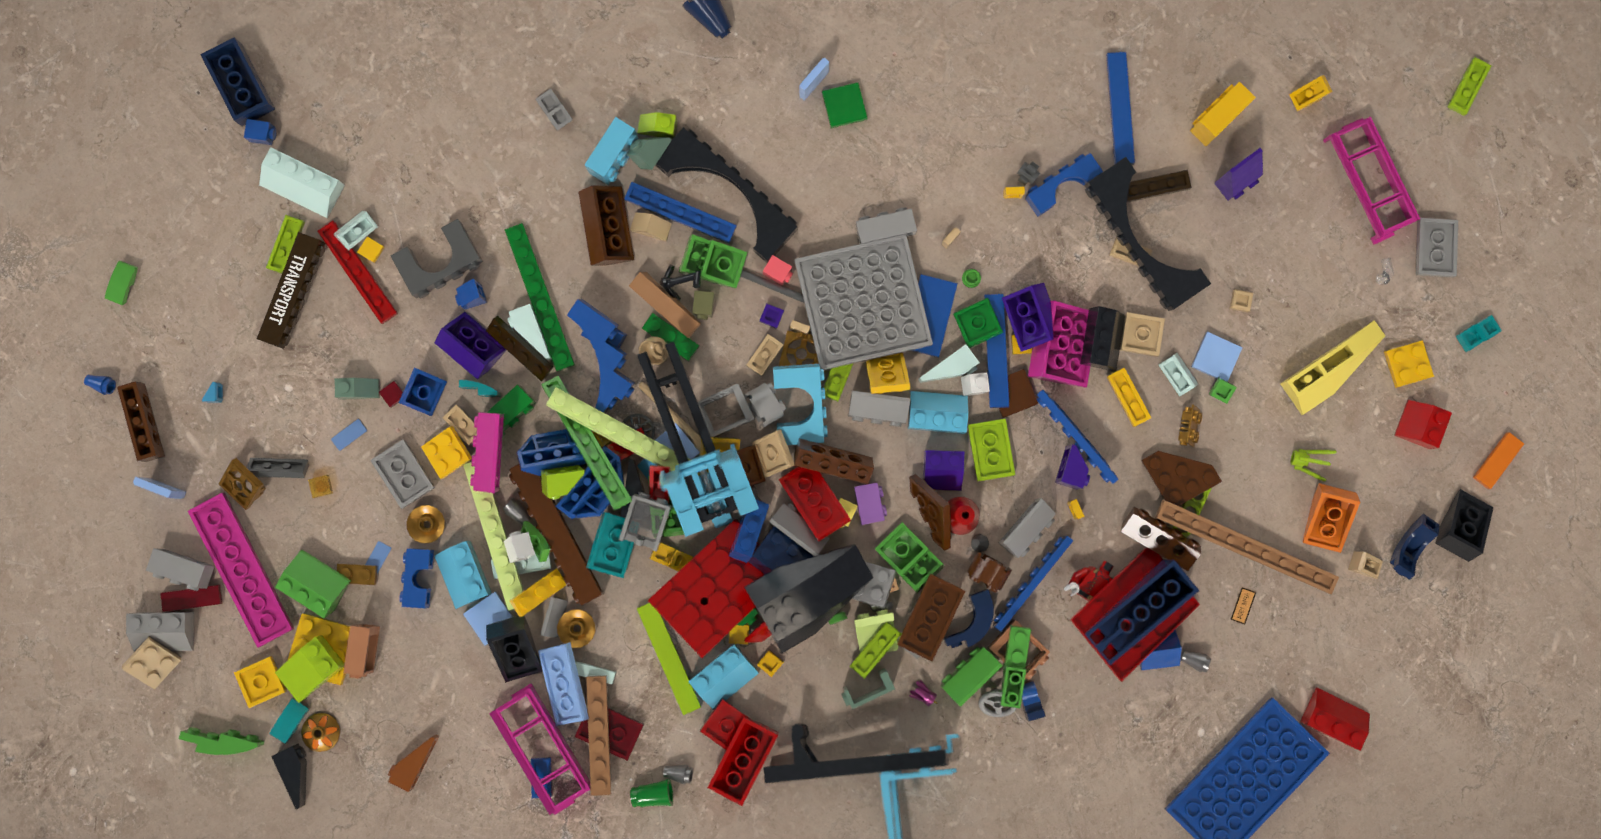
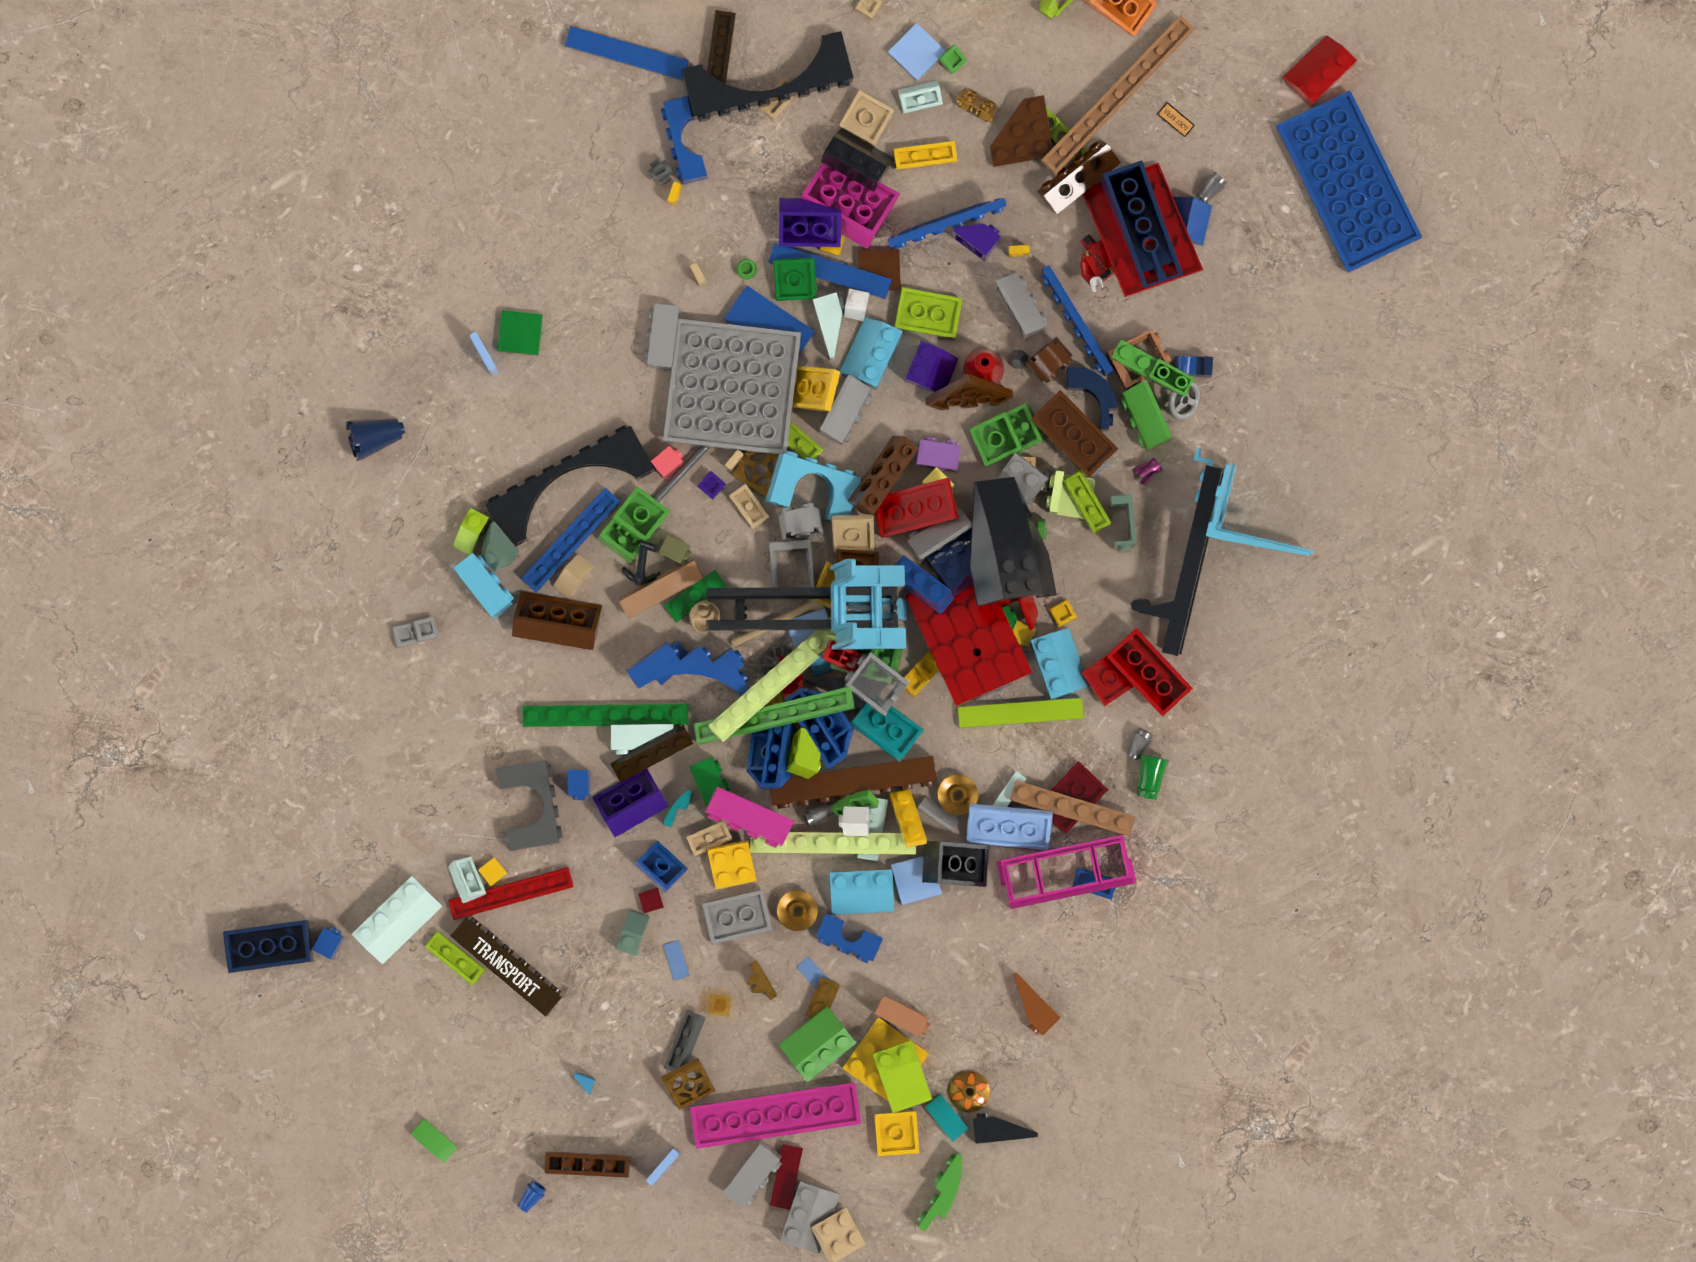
camera: 65 degrees left, 0 degrees up
(350, 515) = (761, 981): none -> pearl gold piece

